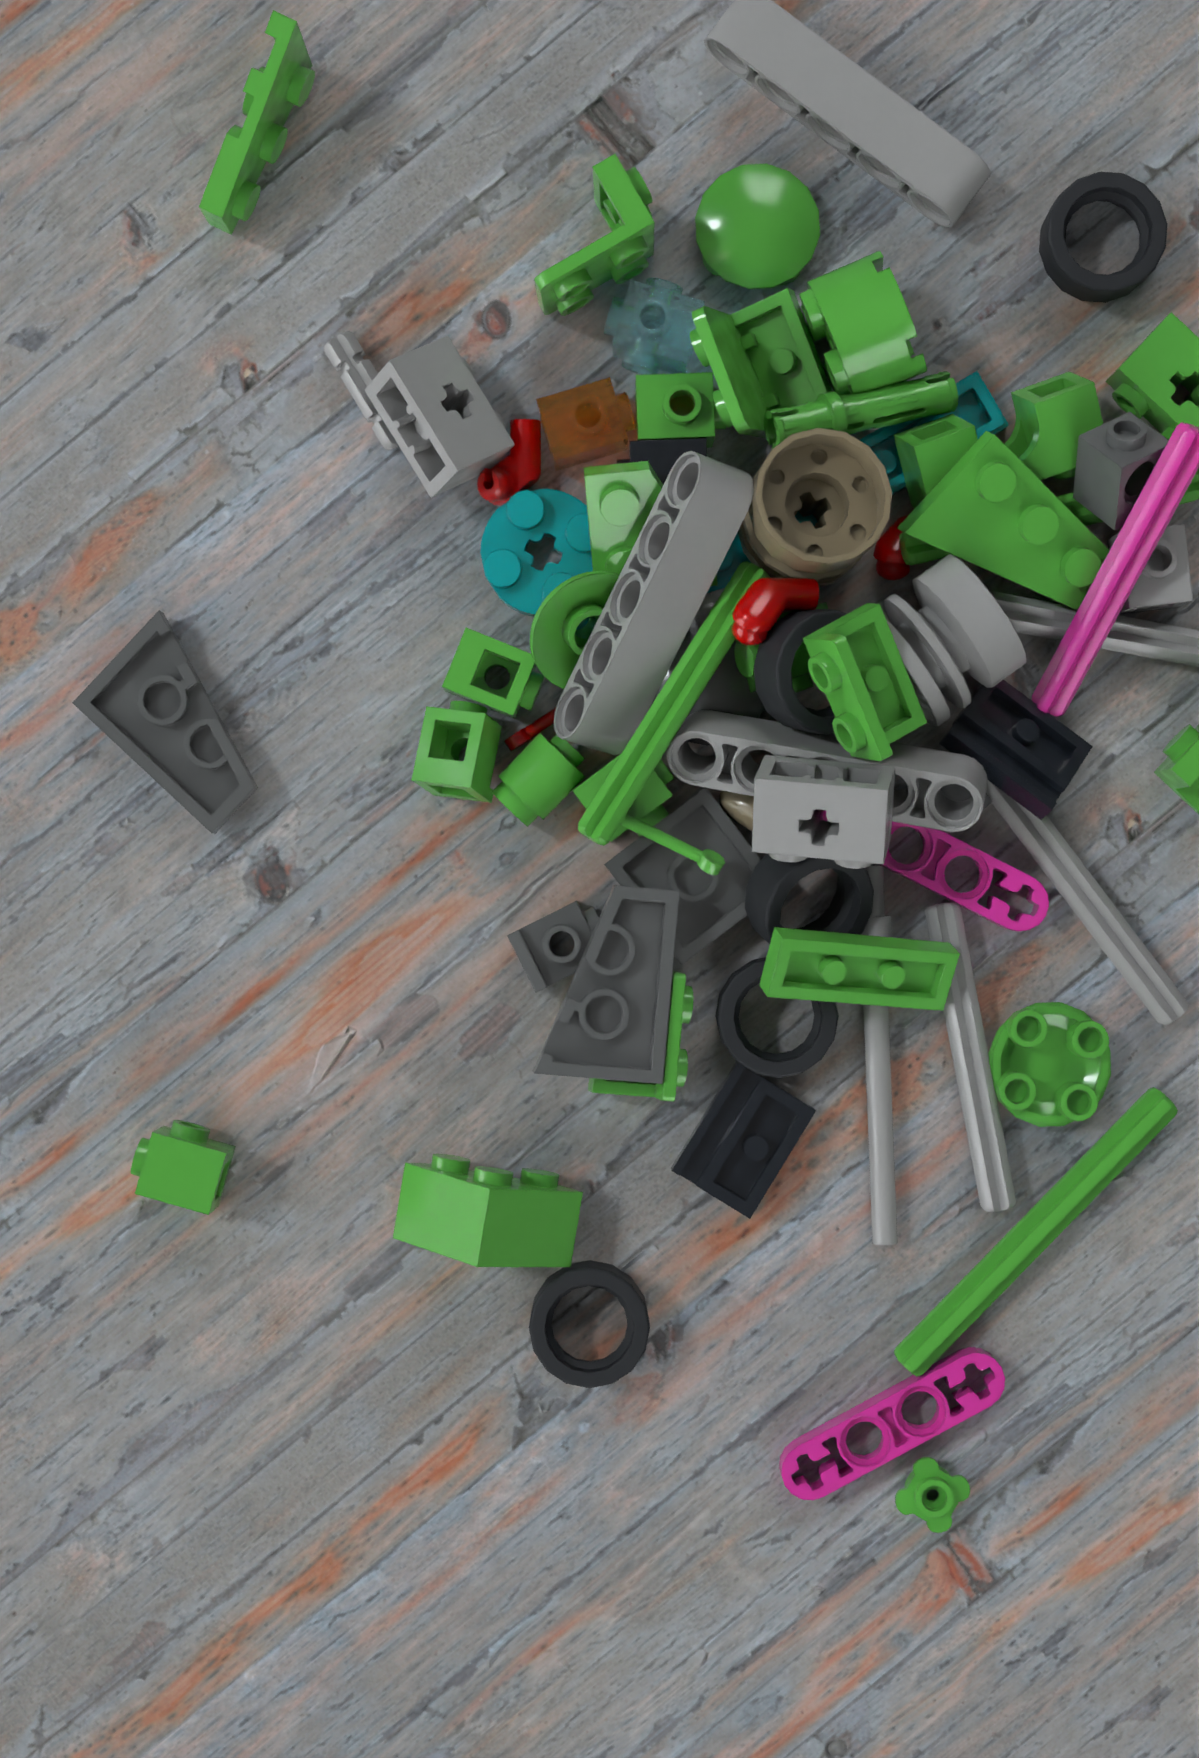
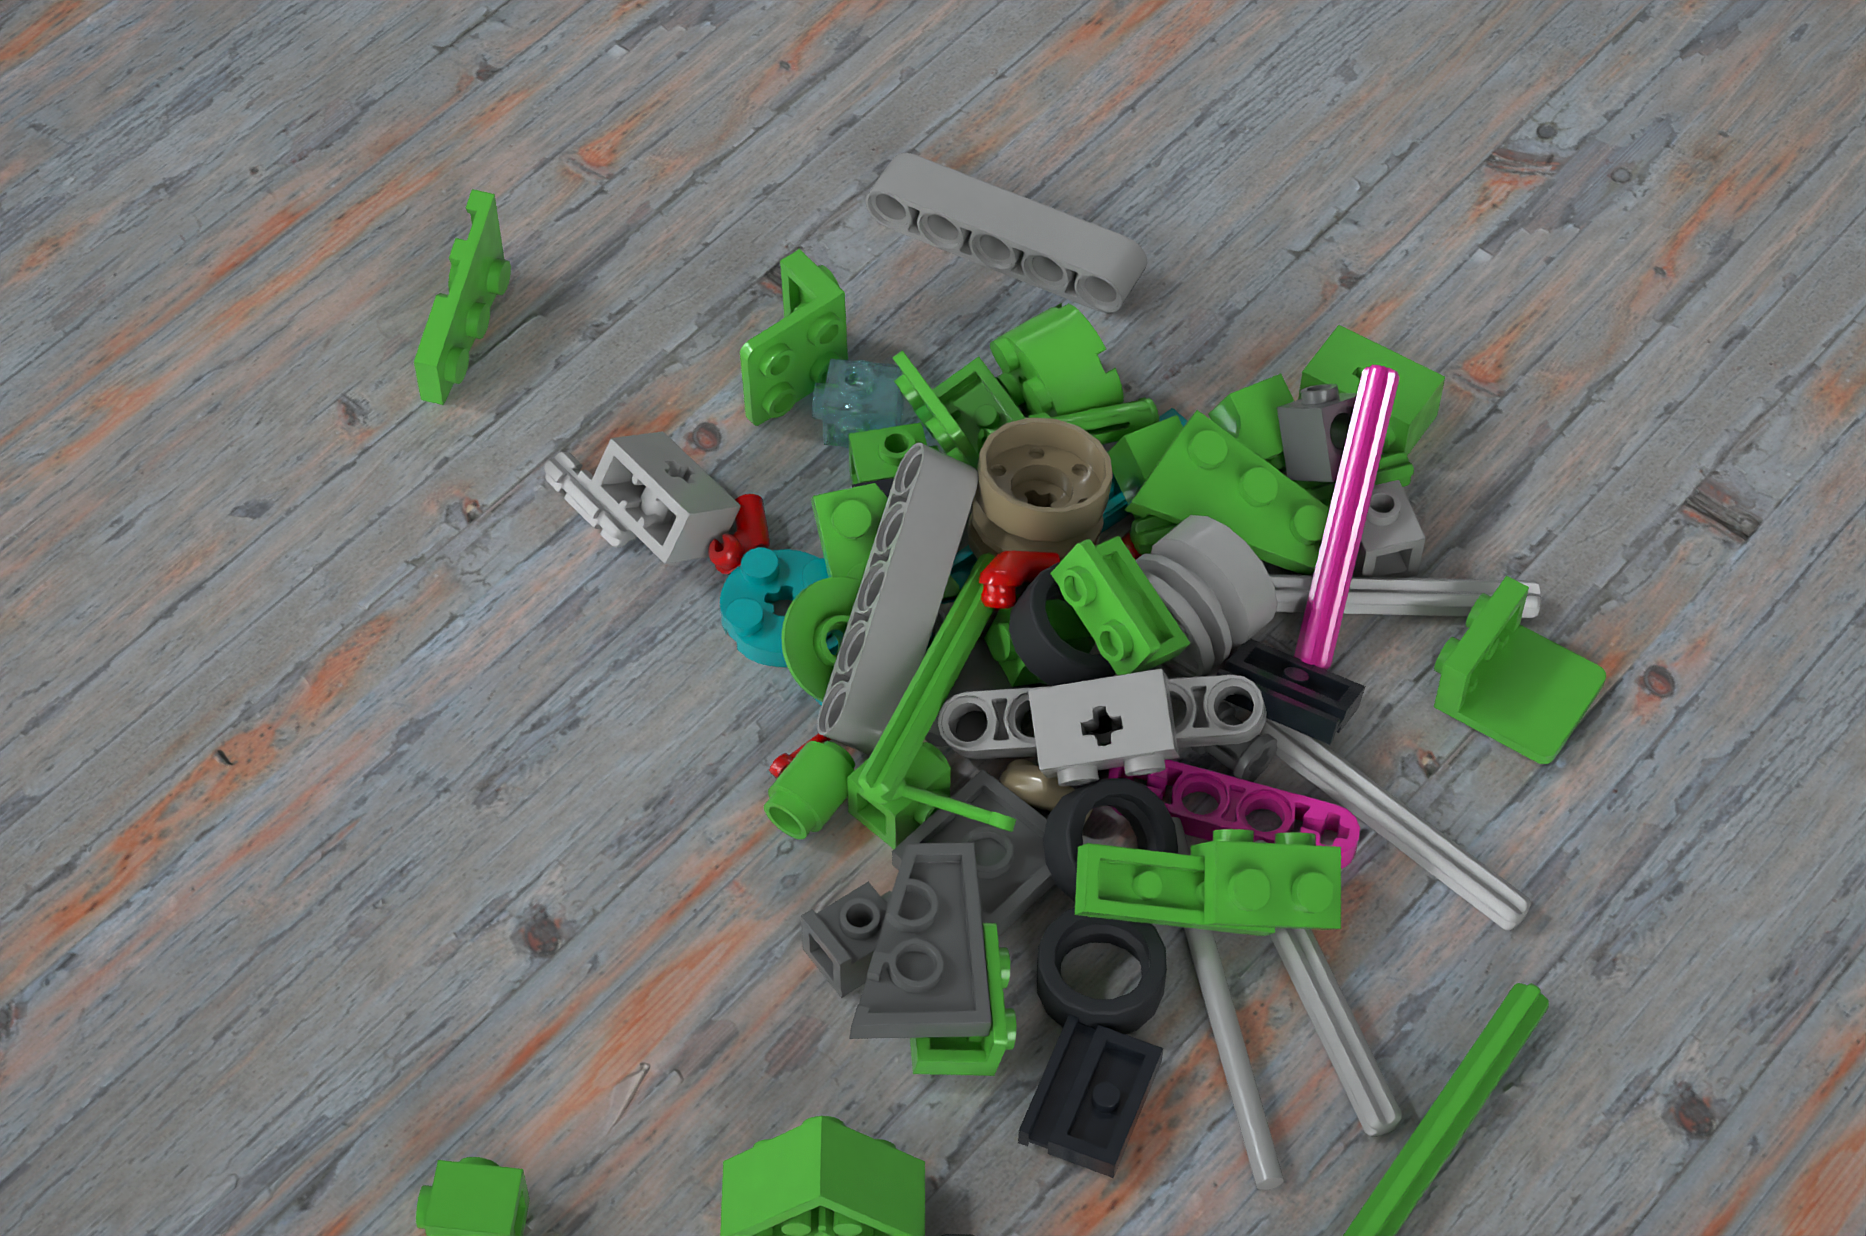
camera: 10 degrees left, 35 degrees down
(168, 725) = (418, 798): dark grey wing -> none
(439, 746) = (723, 777): bright green brick -> none
(473, 661) = (748, 702): bright green brick -> none
(585, 423) = (792, 481): clear orange brick -> none
(757, 226) = (941, 328): bright green dish -> none
(948, 969) = (1270, 883): none -> bright green bracket
(1050, 1064) = (1402, 977): bright green dish -> none
(1142, 208) = (1262, 261): black tyre -> none

